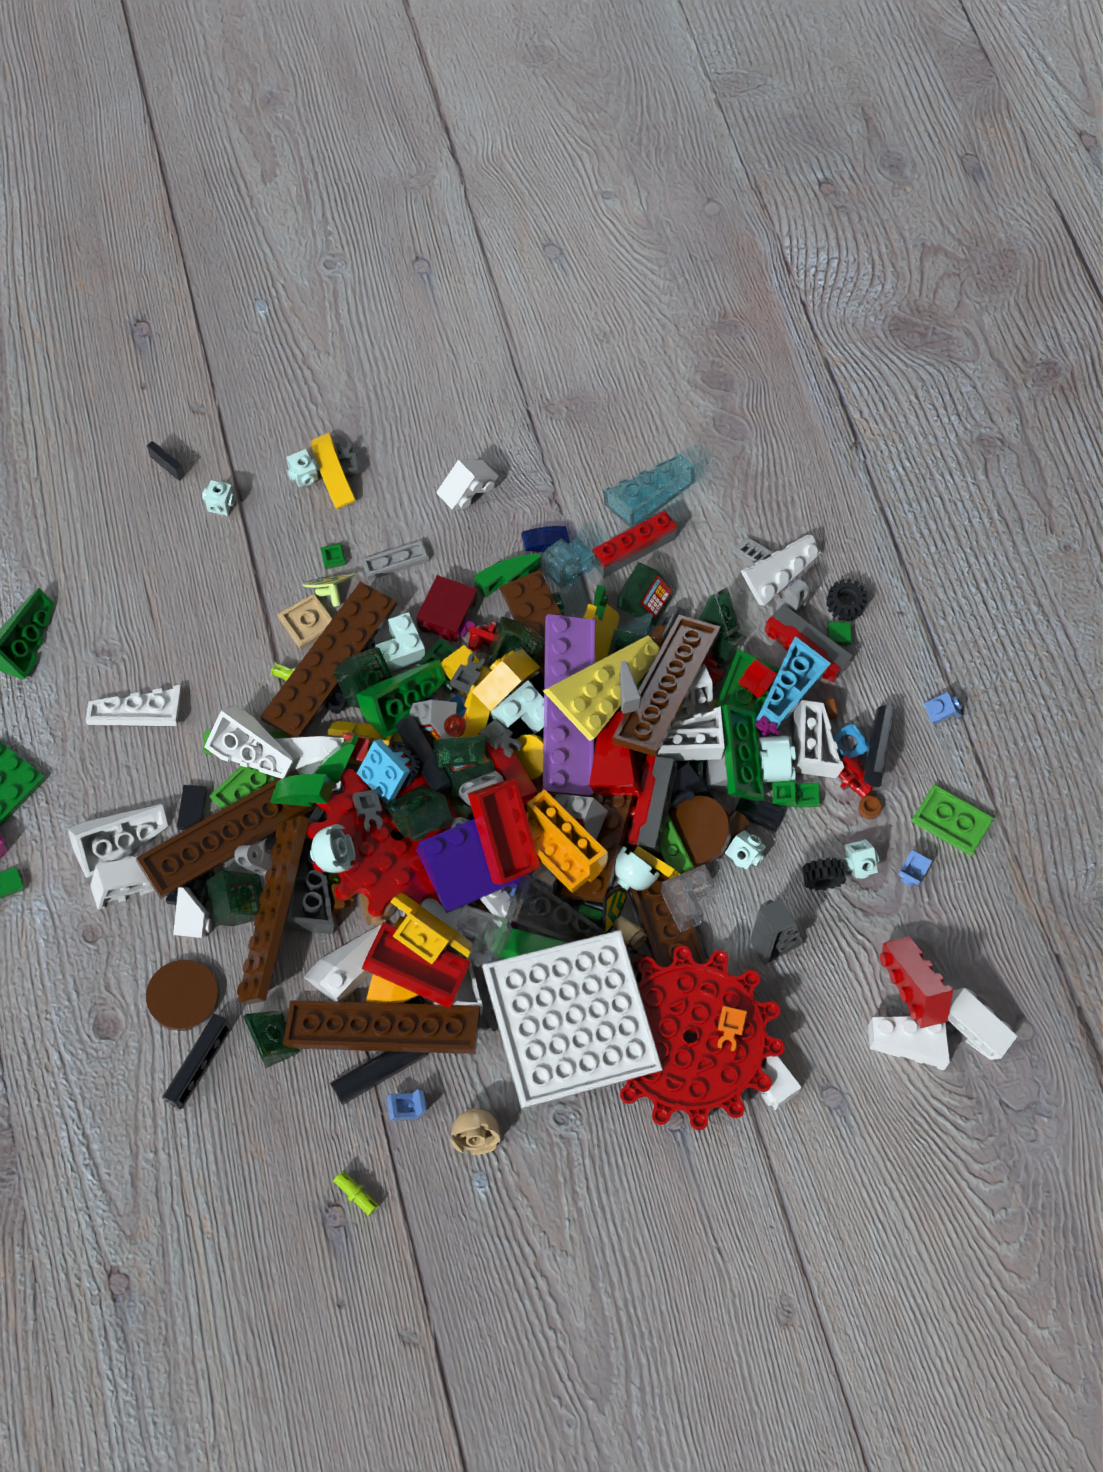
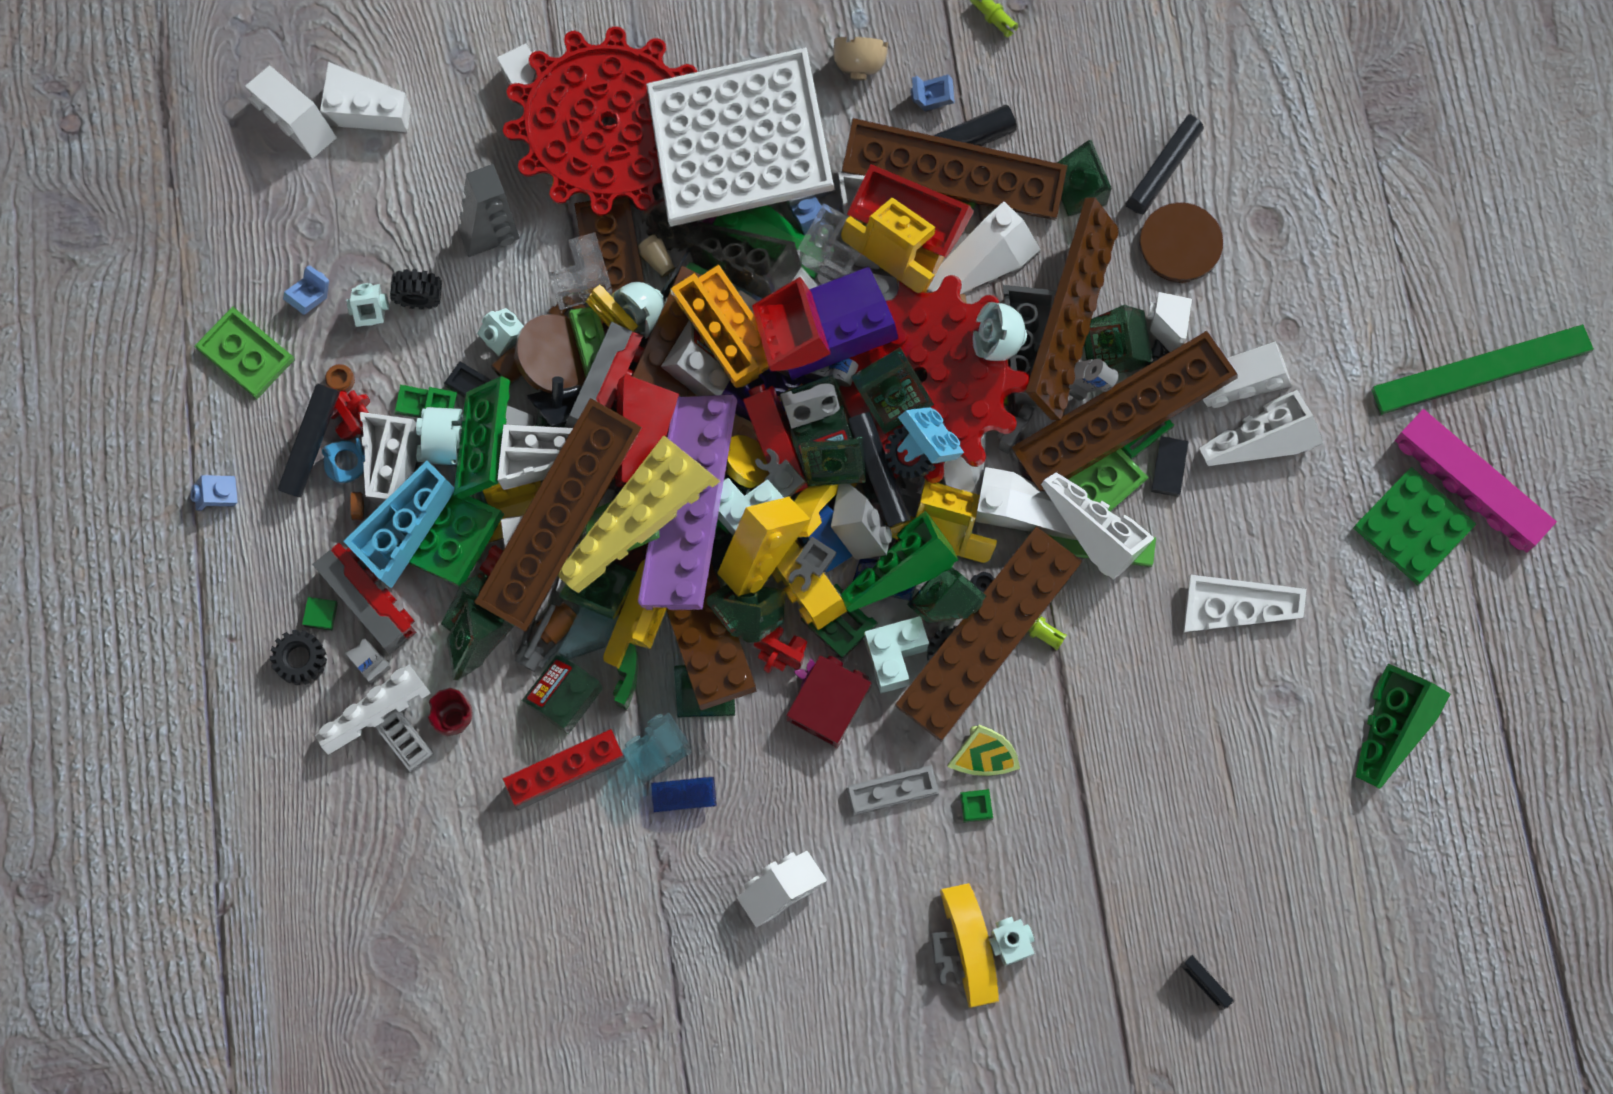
camera: 170 degrees left, 10 degrees up
(219, 497) = (1123, 916): light aqua brick -> none
(303, 790) = (1033, 436): green slope -> none
(305, 620) = (1016, 709): tan tile -> none
(337, 759) = (994, 470): green slope -> none
(362, 745) = (958, 501): red panel -> none
(368, 806) = (954, 396): dark grey plate -> none
(450, 725) = (836, 491): clear red plate -> none
(506, 571) = (743, 745): green slope -> none
(629, 692) = (611, 481): light grey slope -> none
(650, 491) = (533, 845): clear light blue wedge -> none
(724, 571) = (449, 712): none -> dark red hair
(731, 1022) = (561, 113): orange plate -> none
(757, 678) = (441, 536): red panel -> none
(767, 727) = (442, 468): magenta plant -> none
(917, 983) = (342, 146): red wedge -> none

